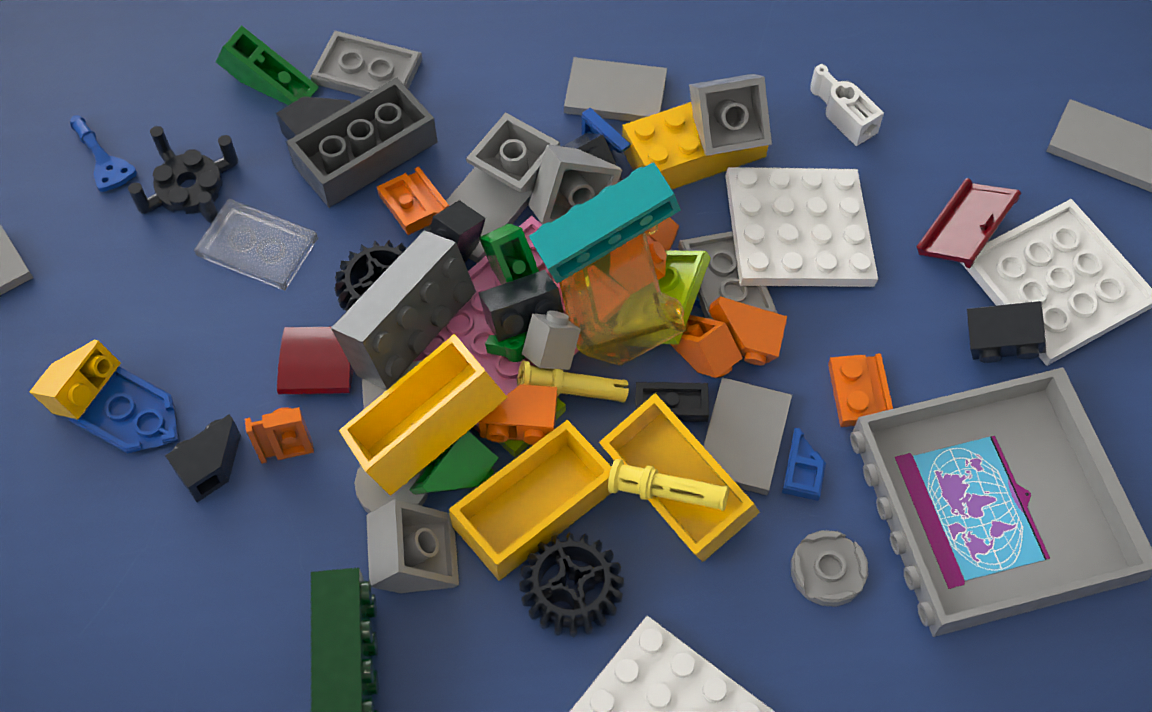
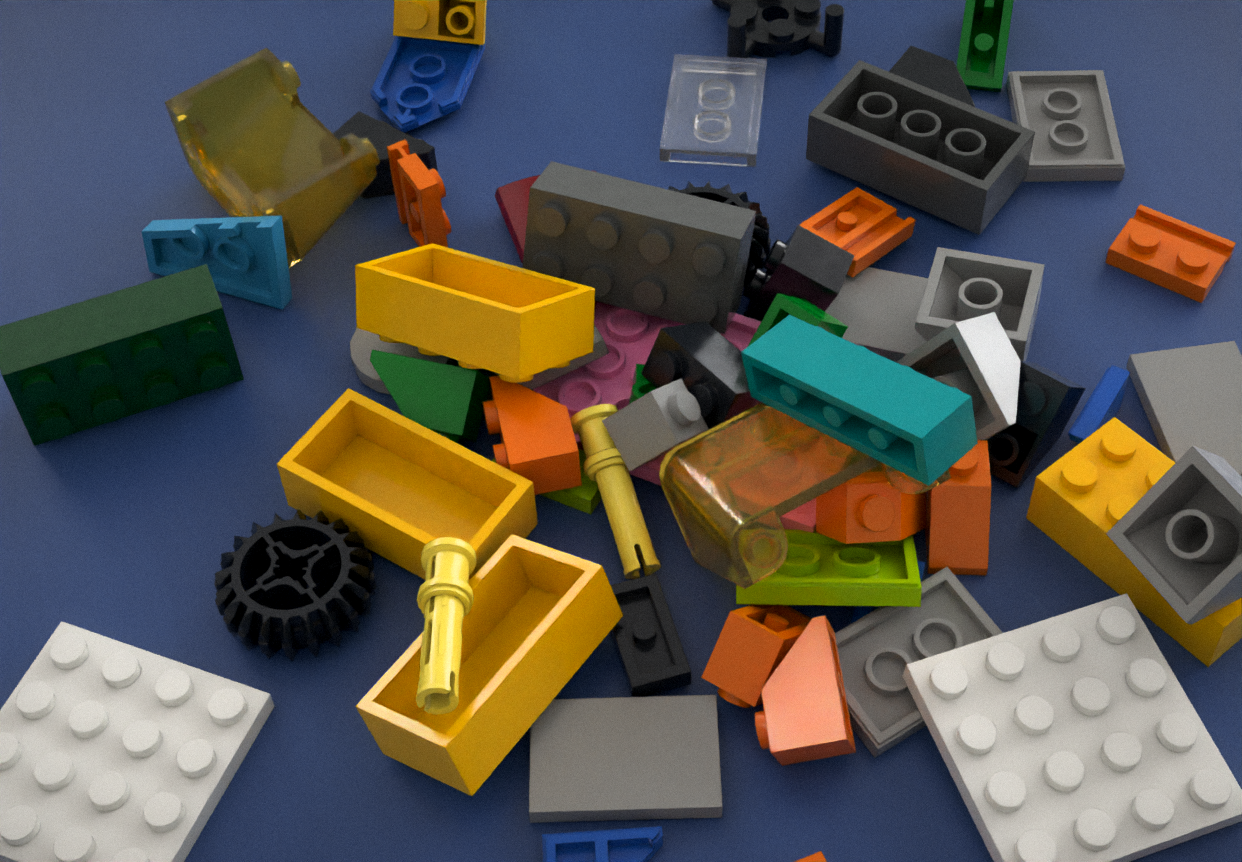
camera: 75 degrees right, 10 degrees down
(191, 523) = (268, 152): none -> clear yellow windscreen
(265, 578) = (241, 253): none -> dark azure wing
(411, 548) = (298, 384): light grey slope -> none
(493, 59) = (1170, 253): none -> orange plate

